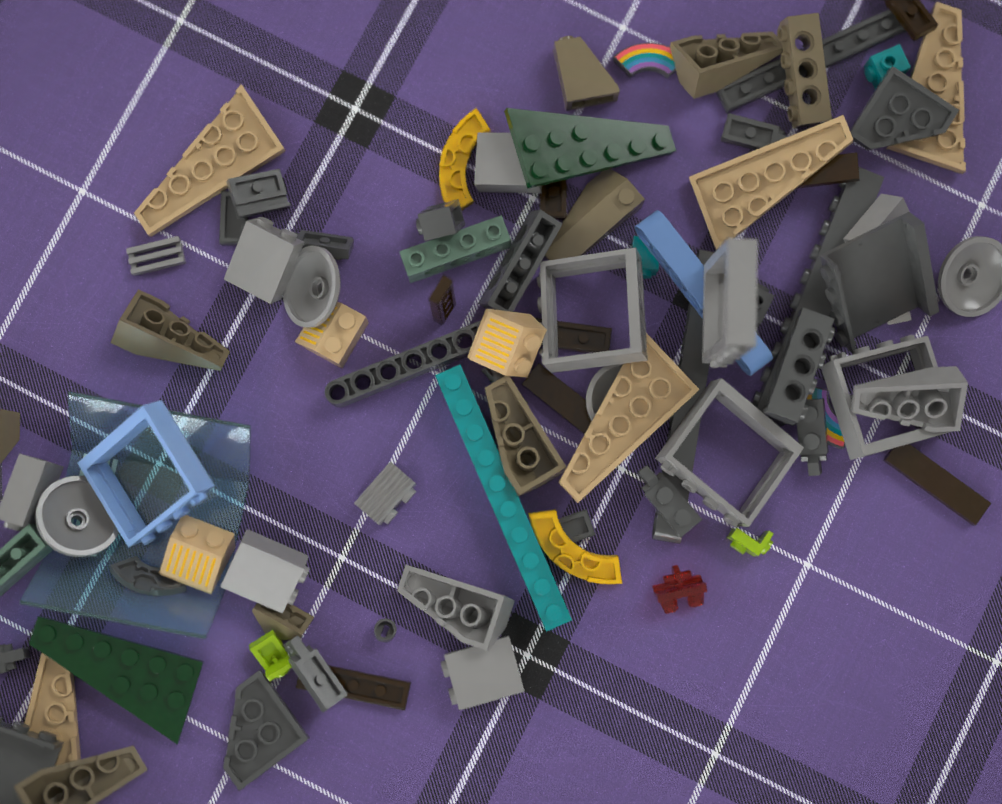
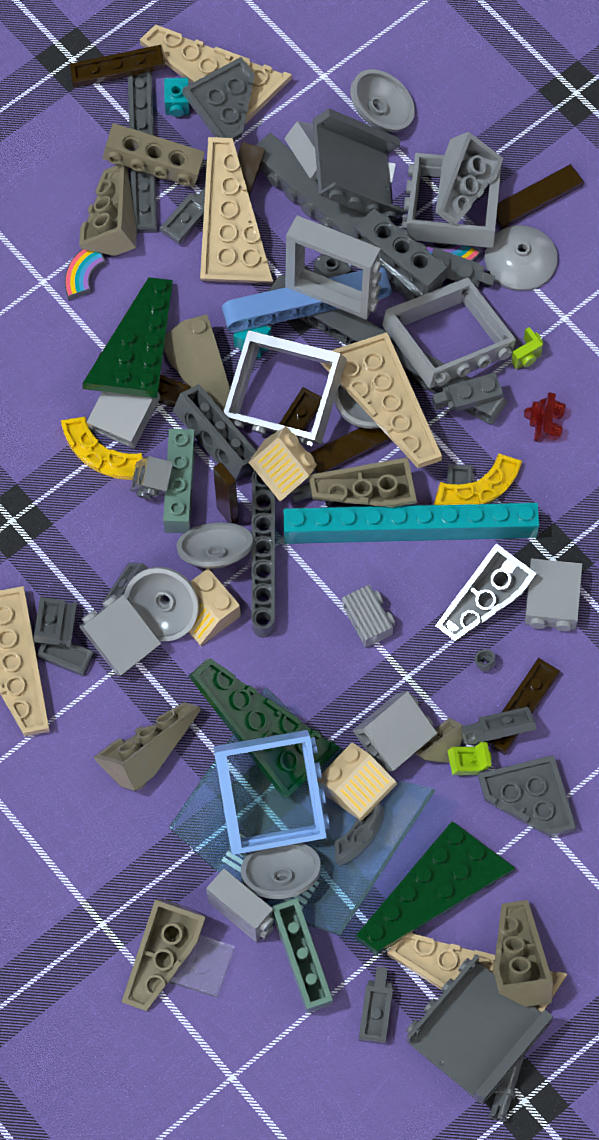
camera: 65 degrees left, 15 degrees down
(132, 251) = (57, 740): light grey tile -> none
(212, 433) = (255, 717): none -> dark green wing
(395, 312) = (214, 545): none -> light grey dish
(582, 75) = (71, 326): dark tan slope -> none
(839, 495) = (519, 269): none -> light grey dish

